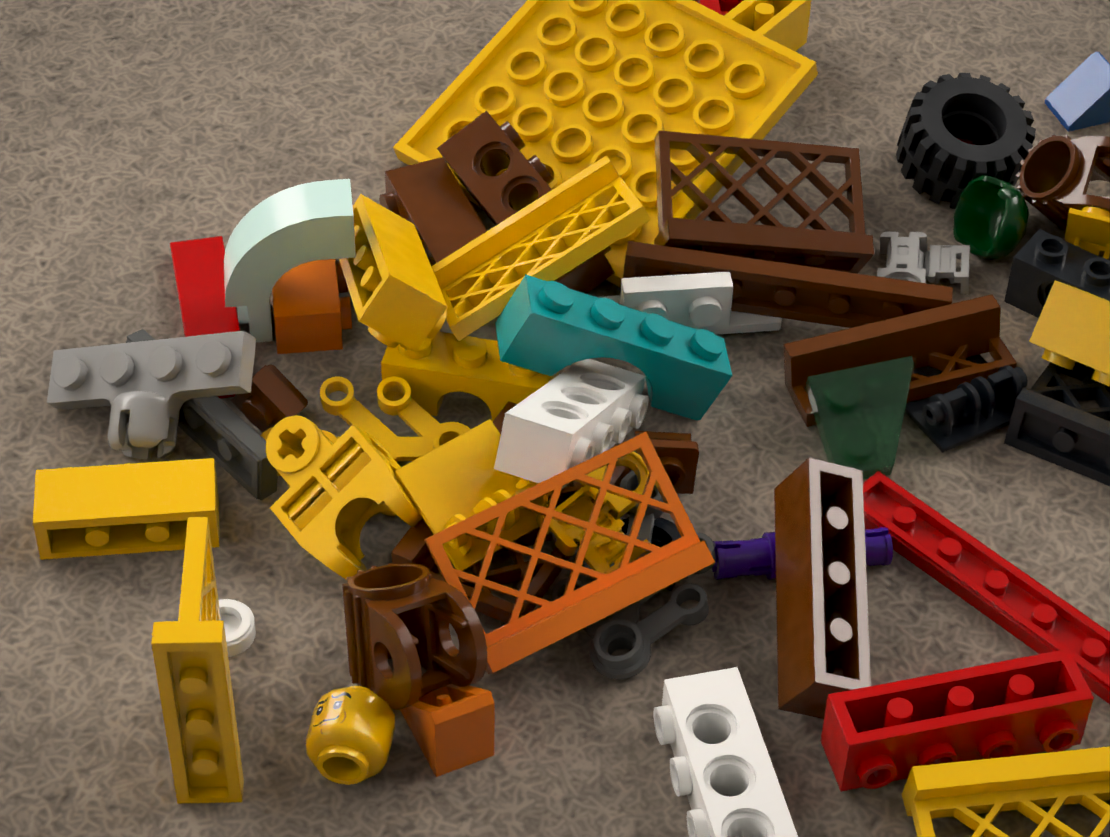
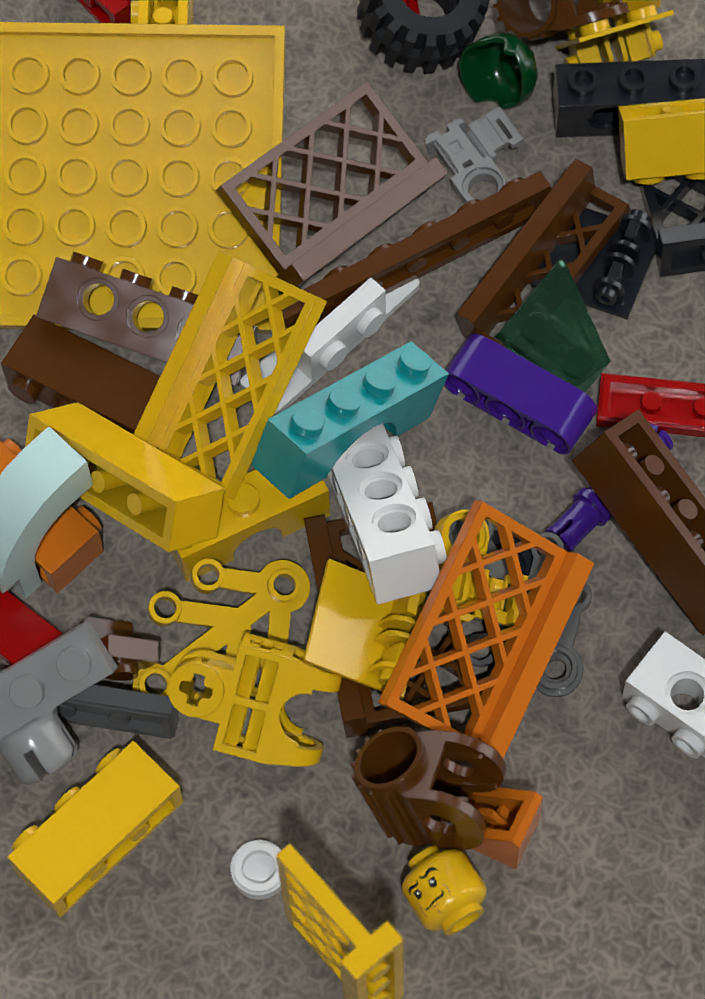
camera: 35 degrees left, 20 degrees up
(678, 456) = (451, 480): reddish brown bracket -> none
(780, 424) = (521, 392): none -> dark purple beam

